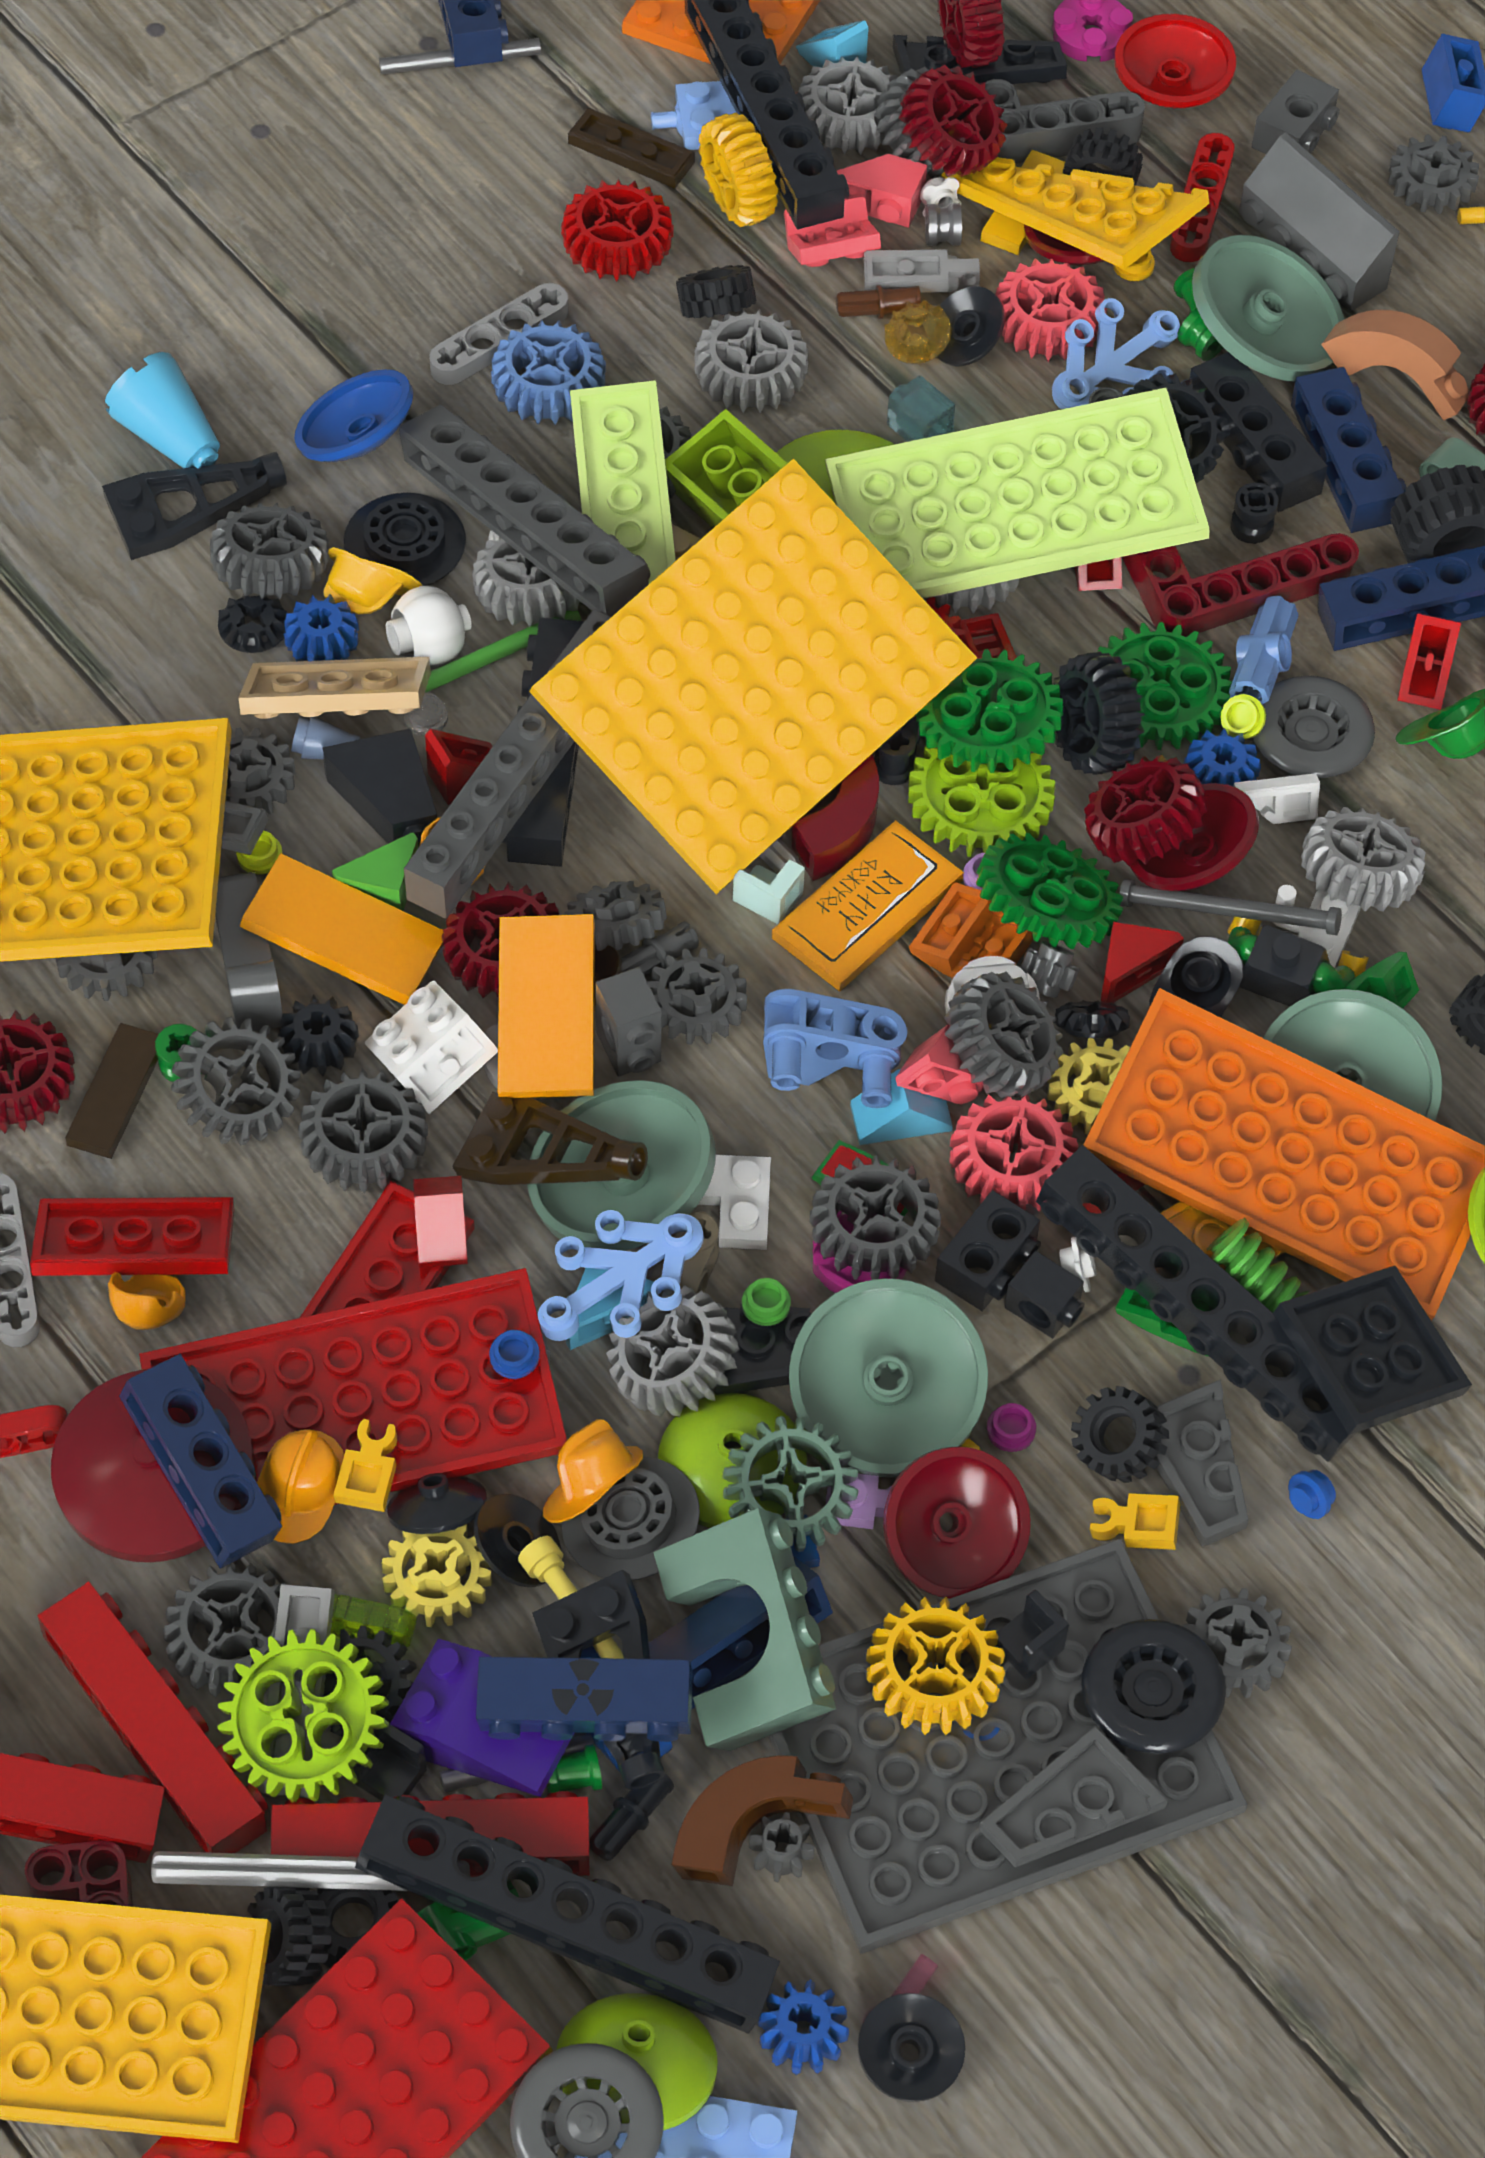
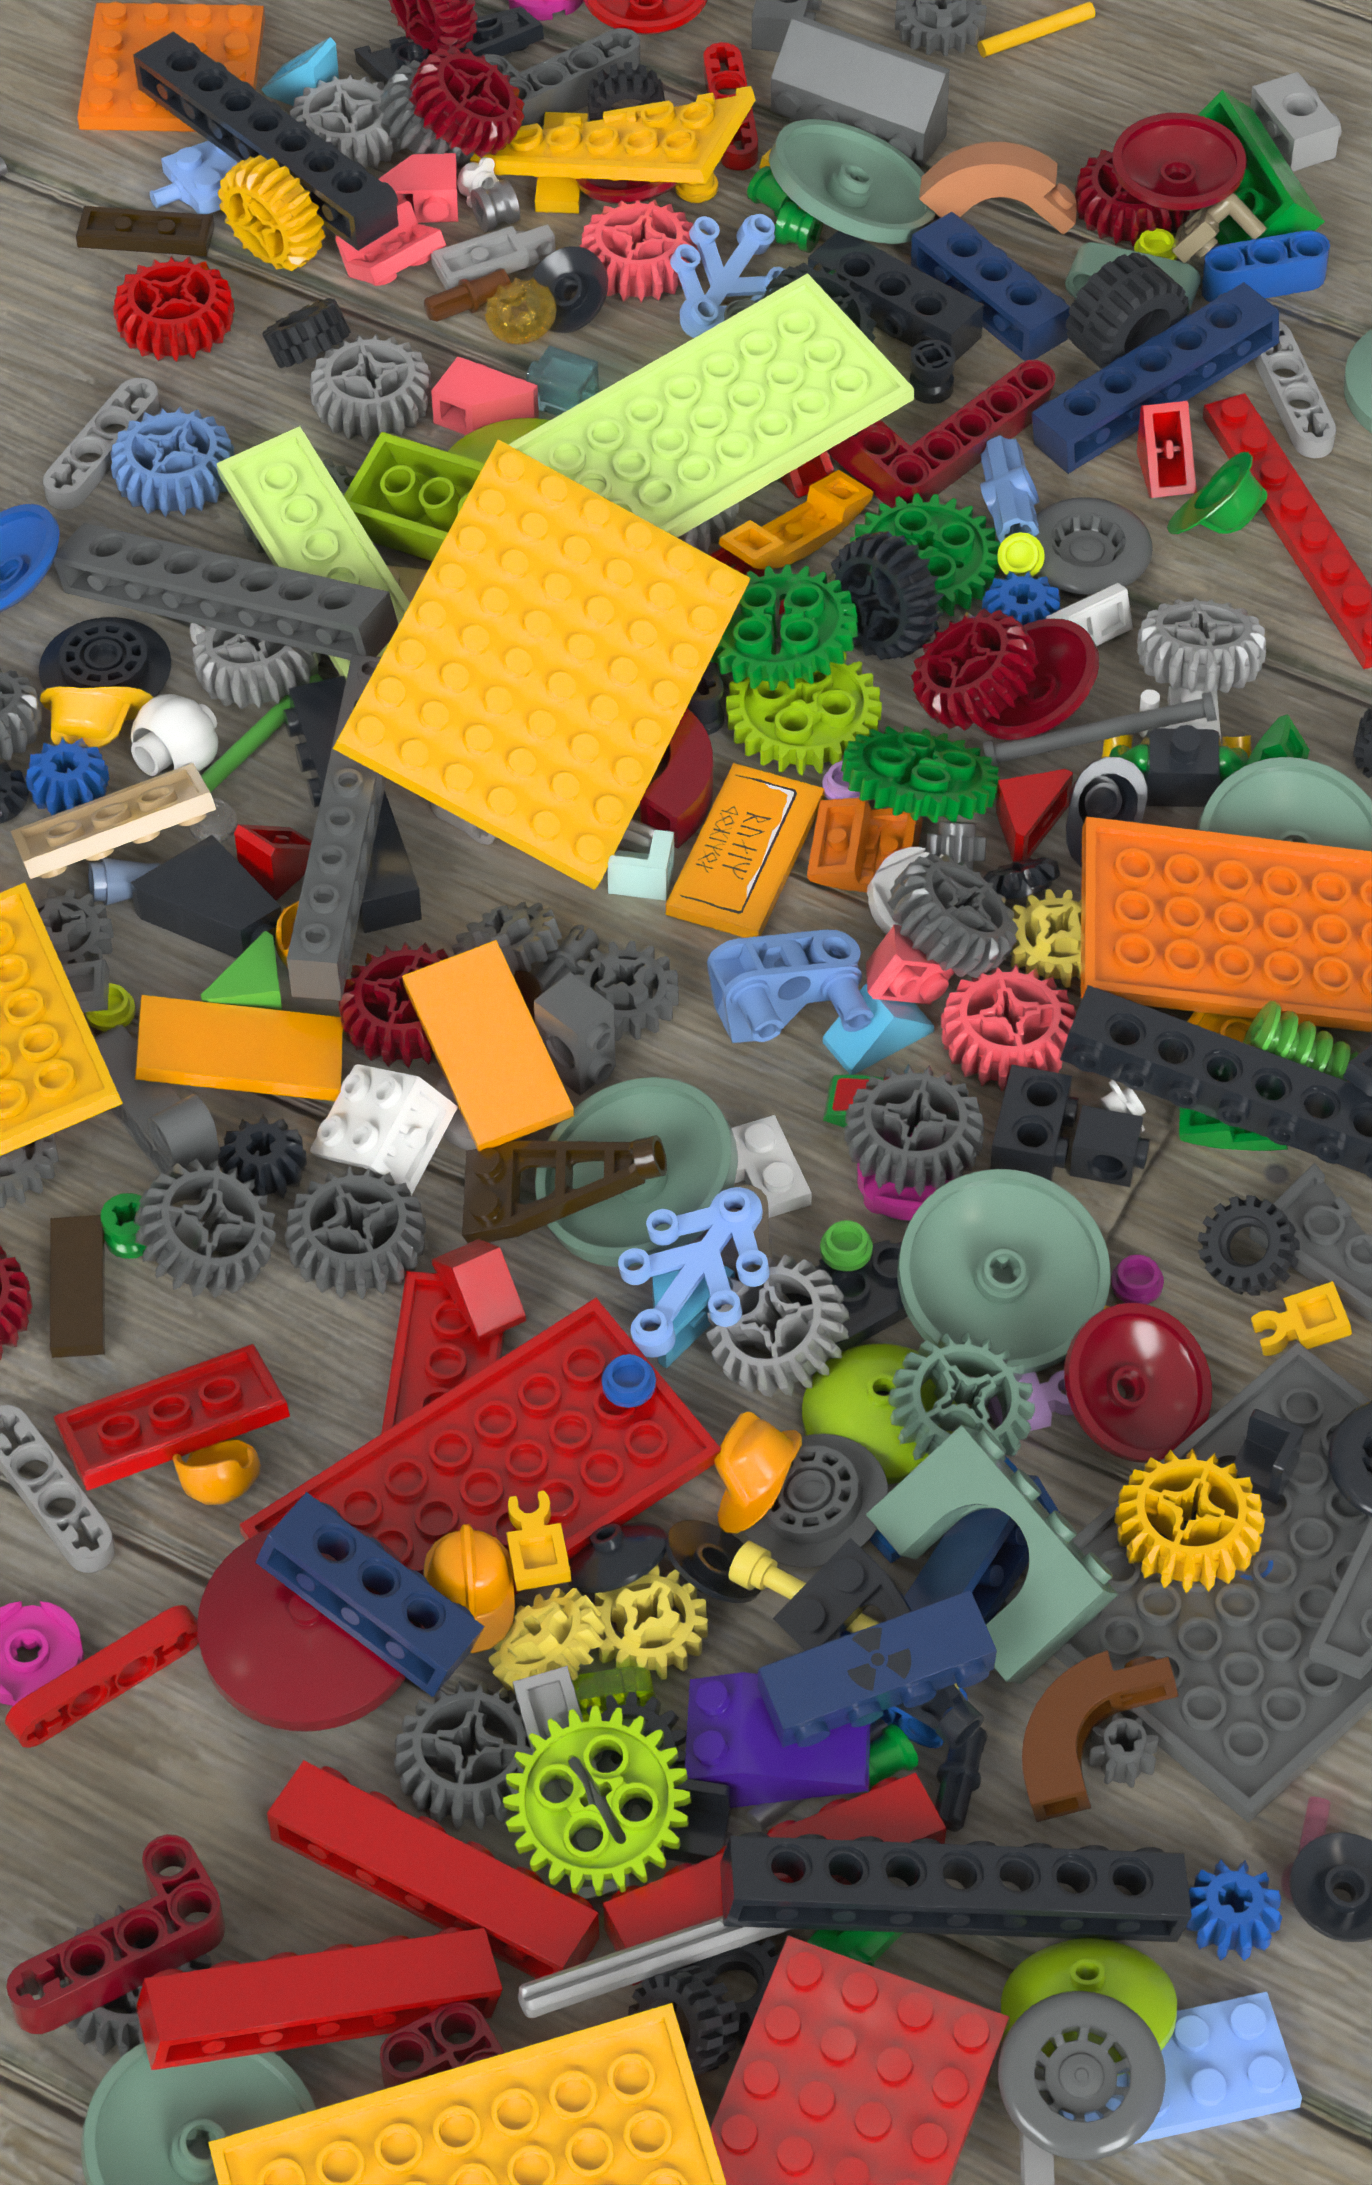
camera: 20 degrees left, 5 degrees down
(342, 1555) = (548, 1637): none -> light yellow gear
(840, 401) = (477, 396): none -> coral slope
(1062, 623) = (804, 529): none -> light orange slope

